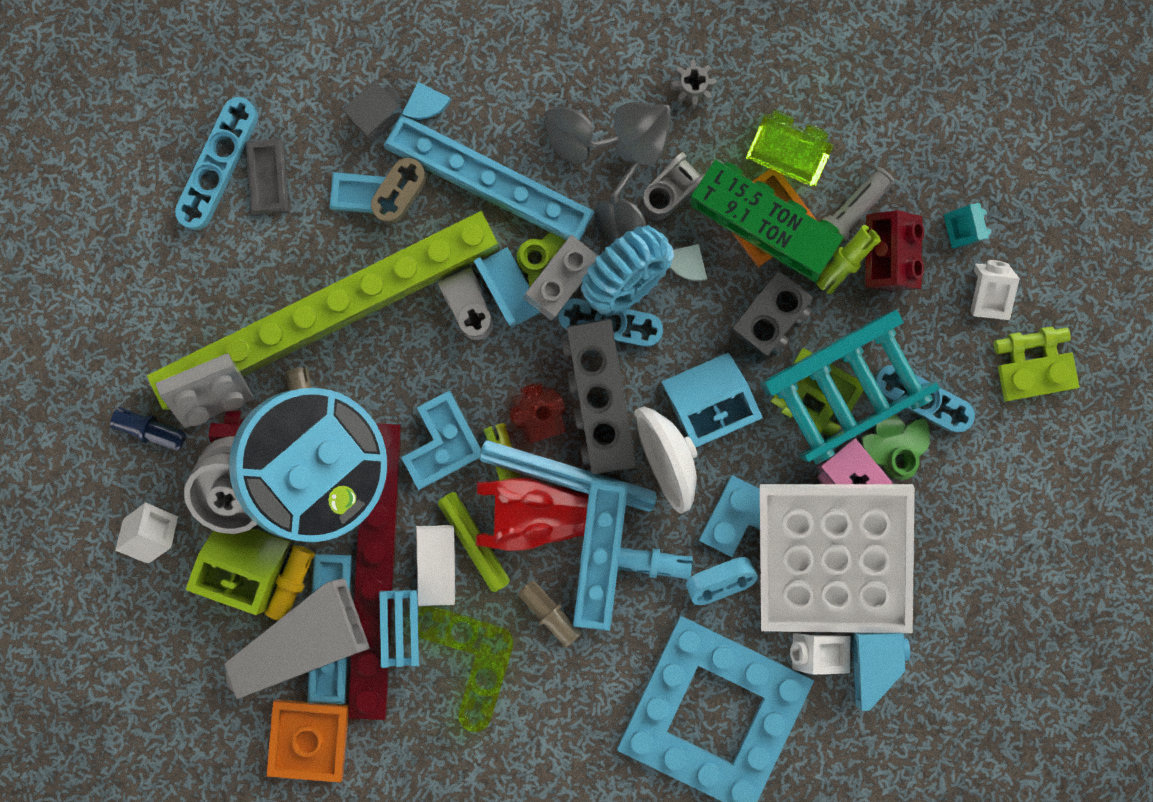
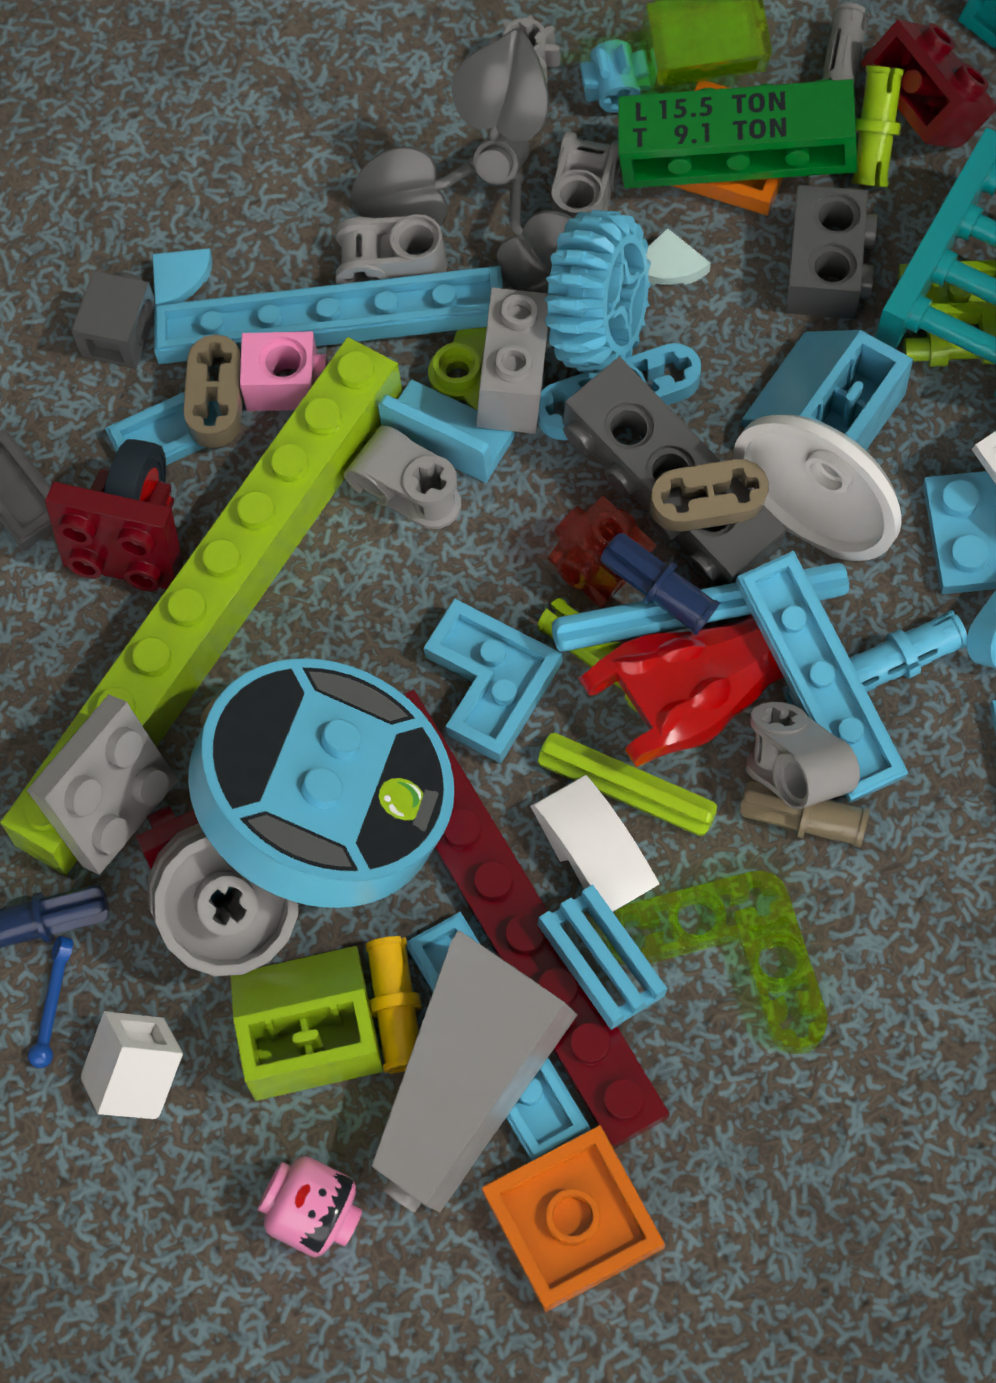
camera: 30 degrees left, 20 degrees down
(110, 496) = (41, 1054): none -> blue hinge
(188, 658) = (310, 1206): none -> bright pink head
(307, 239) = (120, 523): none -> dark red plate
(433, 187) = (270, 353): none -> bright pink brick
(535, 161) = (388, 248): none -> light grey piece
(548, 460) = (659, 582): none -> dark blue axle
(559, 591) = (799, 757): none -> light grey piece
(601, 436) = (706, 481): none -> dark tan beam
(731, 133) = (614, 73): none -> medium azure gear

